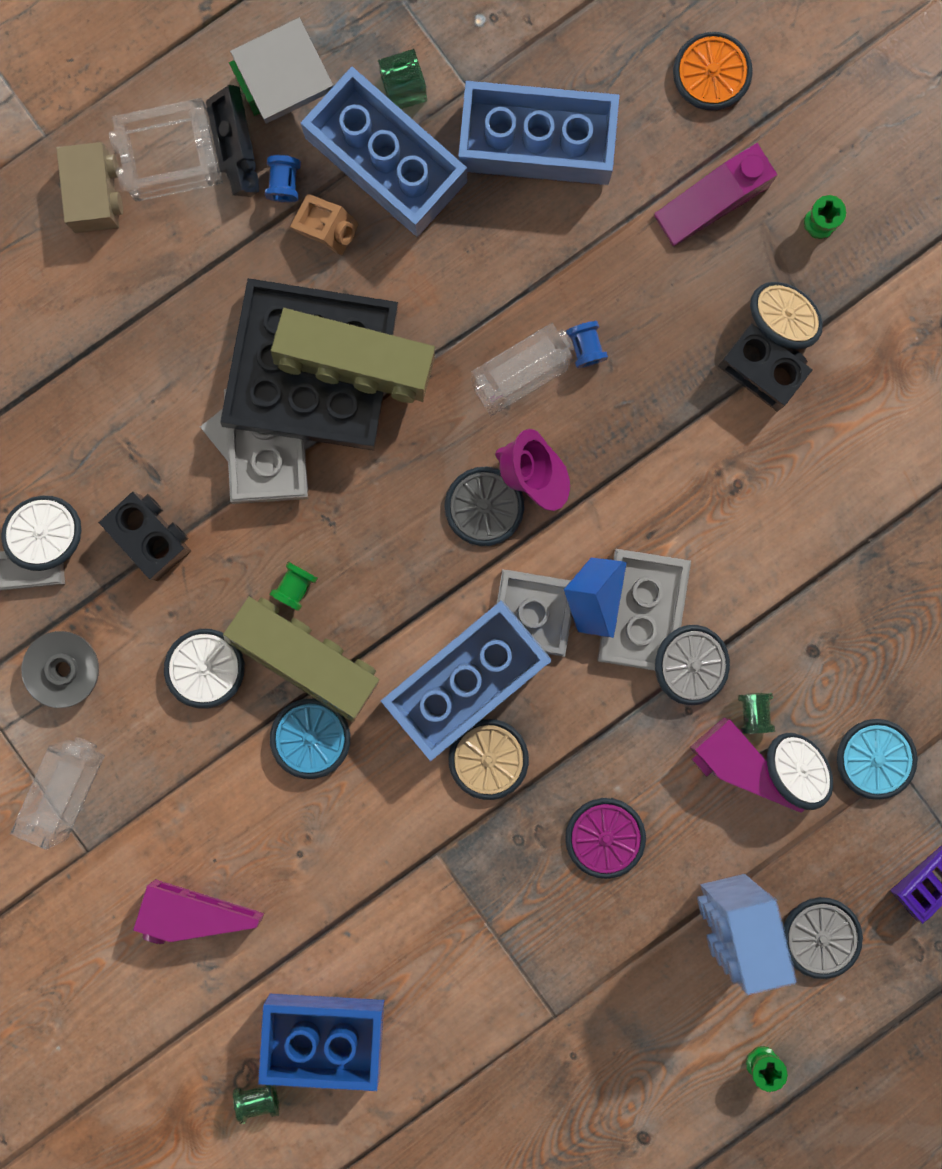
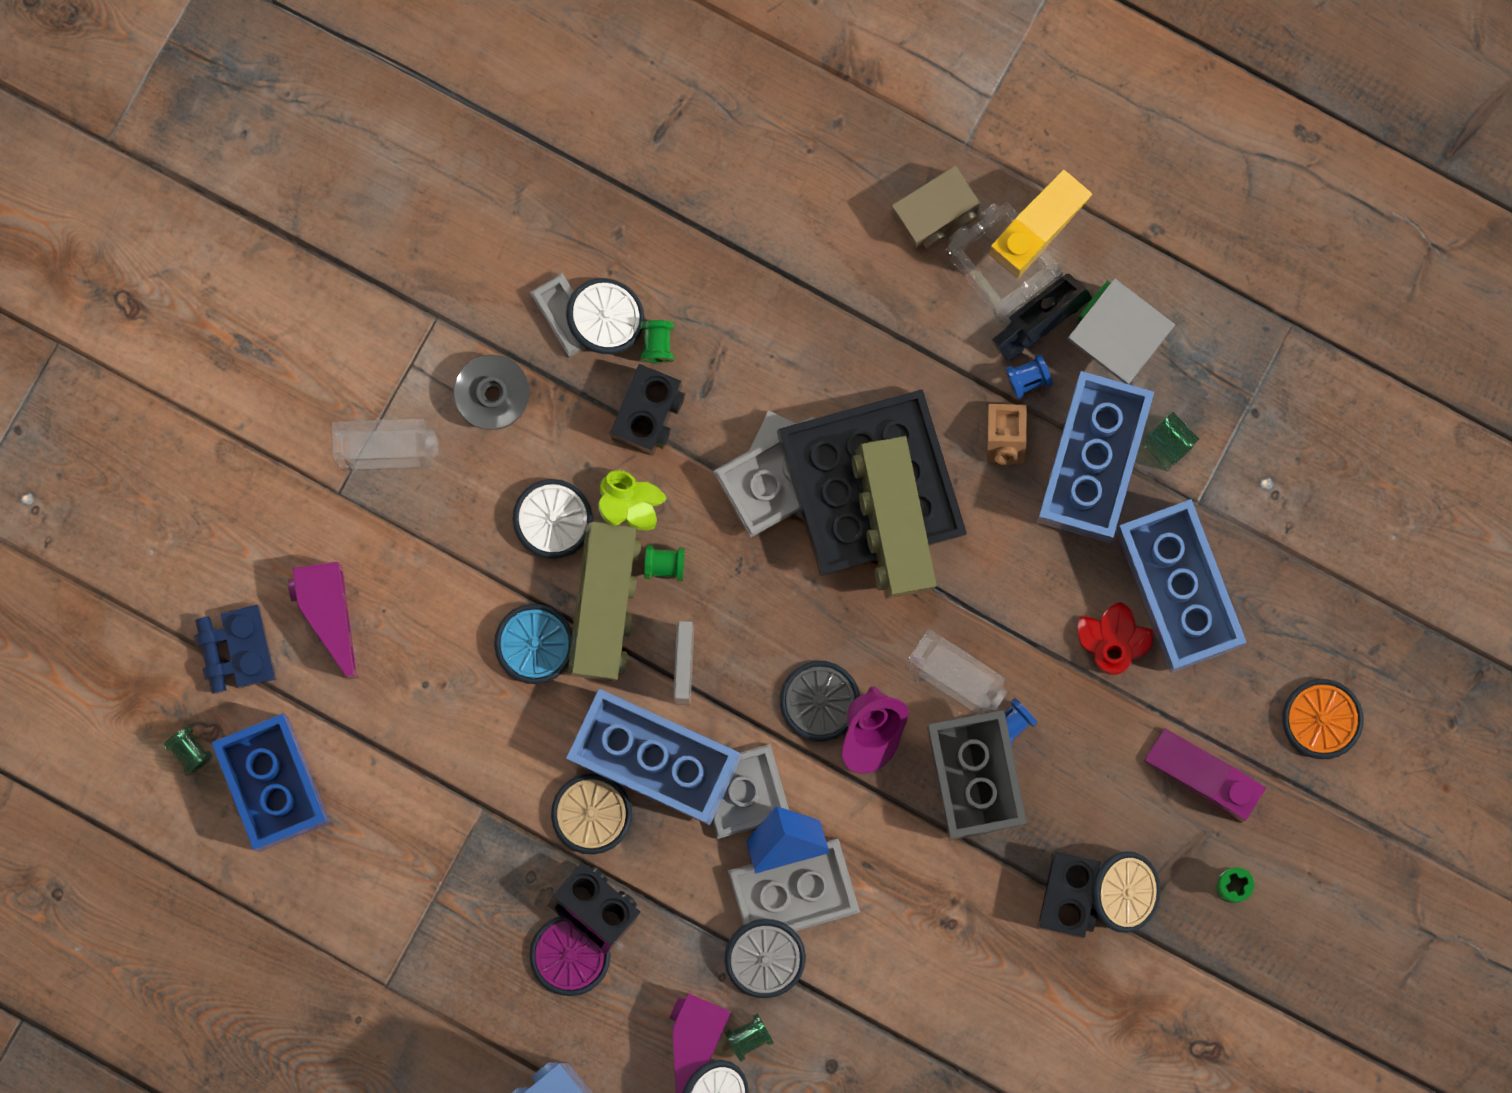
camera: 70 degrees right, 5 degrees down
(87, 496) = (657, 341): none -> green bush
(147, 96) = (1039, 224): none -> yellow slope
(188, 1002) = (247, 648): none -> dark blue plate
(221, 591) = (629, 501): none -> lime plate
(393, 611) = (683, 663): none -> light grey tile
(550, 214) = (1117, 633): none -> red plate
(580, 807) = (587, 915): none -> black brick
(621, 396) = (976, 775): none -> dark grey slope

